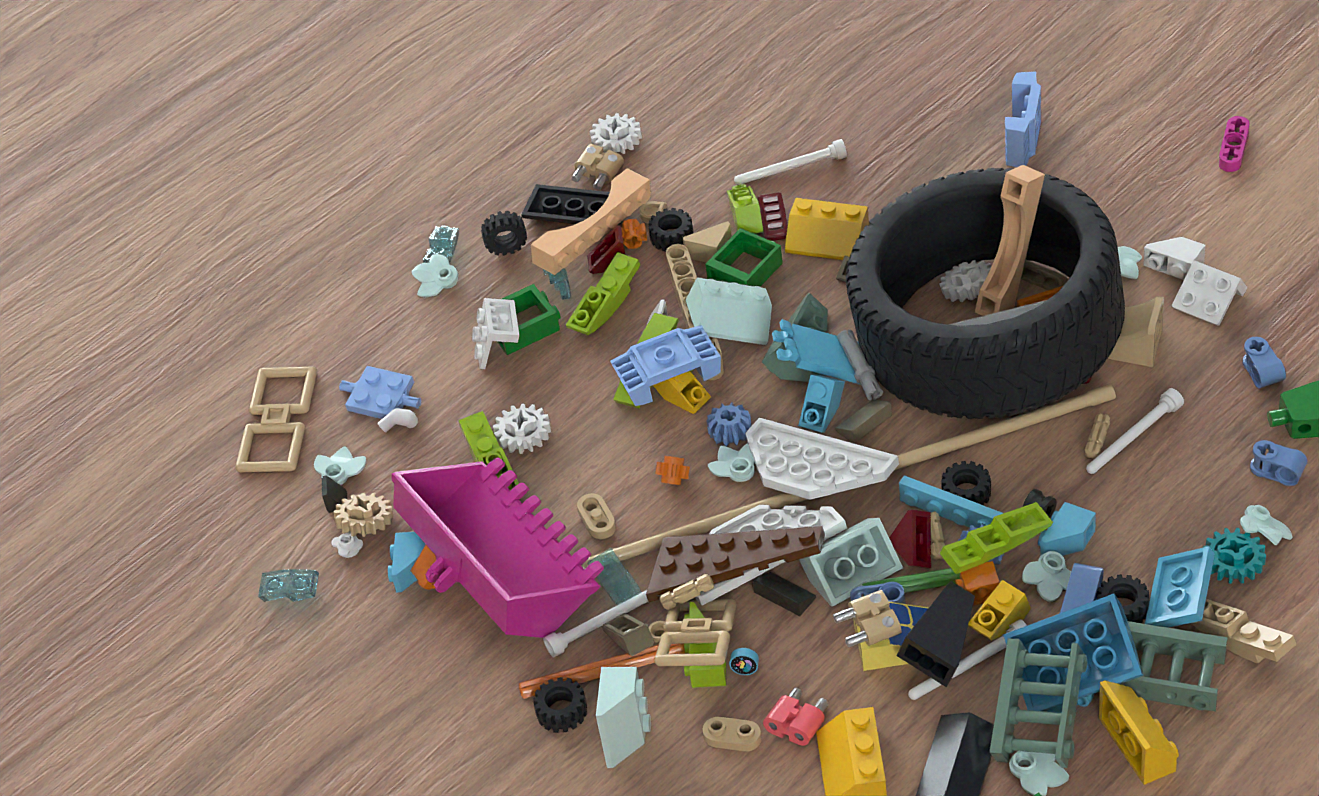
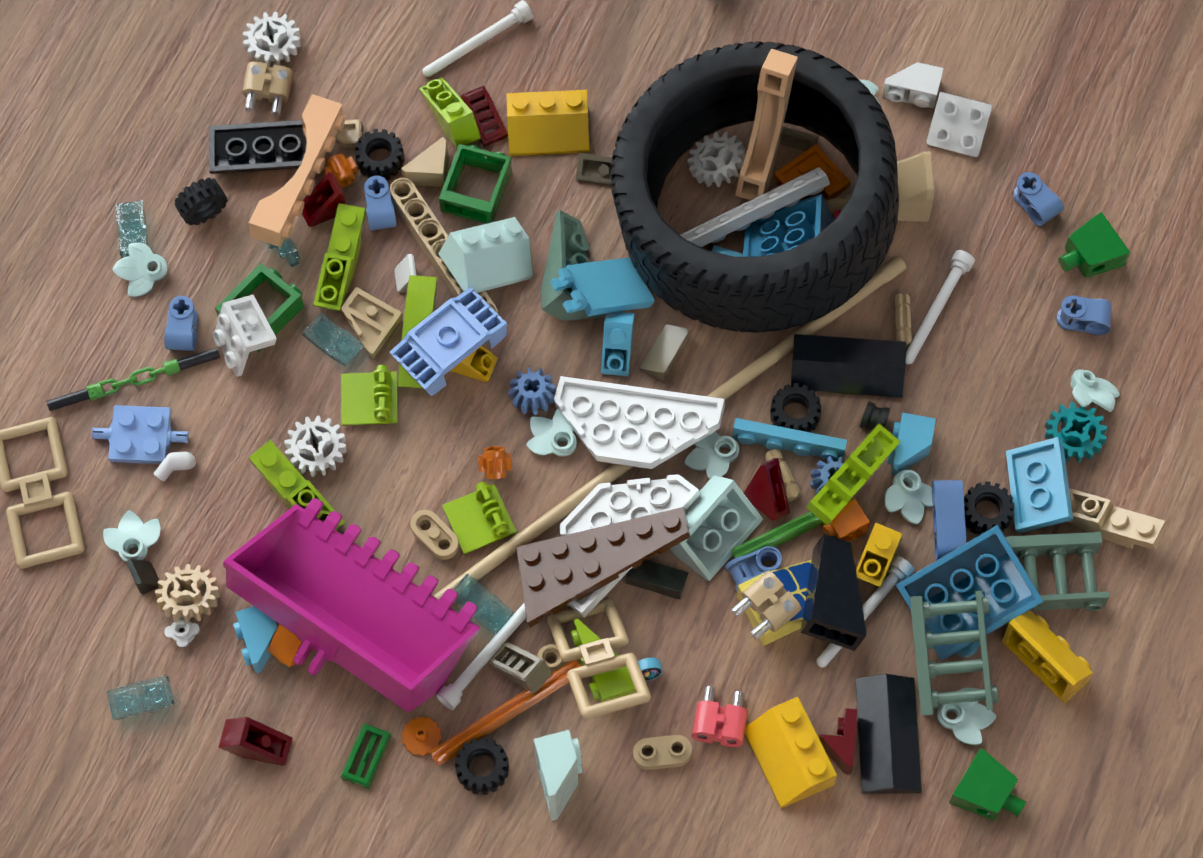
camera: 25 degrees left, 20 degrees up
(369, 639) = (255, 741): none -> dark red slope
(426, 351) = (96, 390): none -> piece
(449, 320) = (181, 325): none -> medium blue piece
(465, 677) = (356, 779): none -> green tile
(517, 670) = (421, 736): none -> orange piece
(571, 355) = (332, 340): none -> clear light blue slope
(586, 403) = (369, 397): none -> lime hinge
(608, 343) = (370, 319): none -> tan wing
(642, 512) = (479, 518): none -> lime hinge
(654, 263) = (379, 206): none -> medium blue piece
(687, 591) = (568, 610): tan axle -> none
(863, 372) = (650, 298): light grey pin -> none
(876, 503) = (708, 455): none -> light aqua plate
(906, 764) = (842, 747): none -> dark red slope
(1031, 460) = (849, 365): none -> black slope

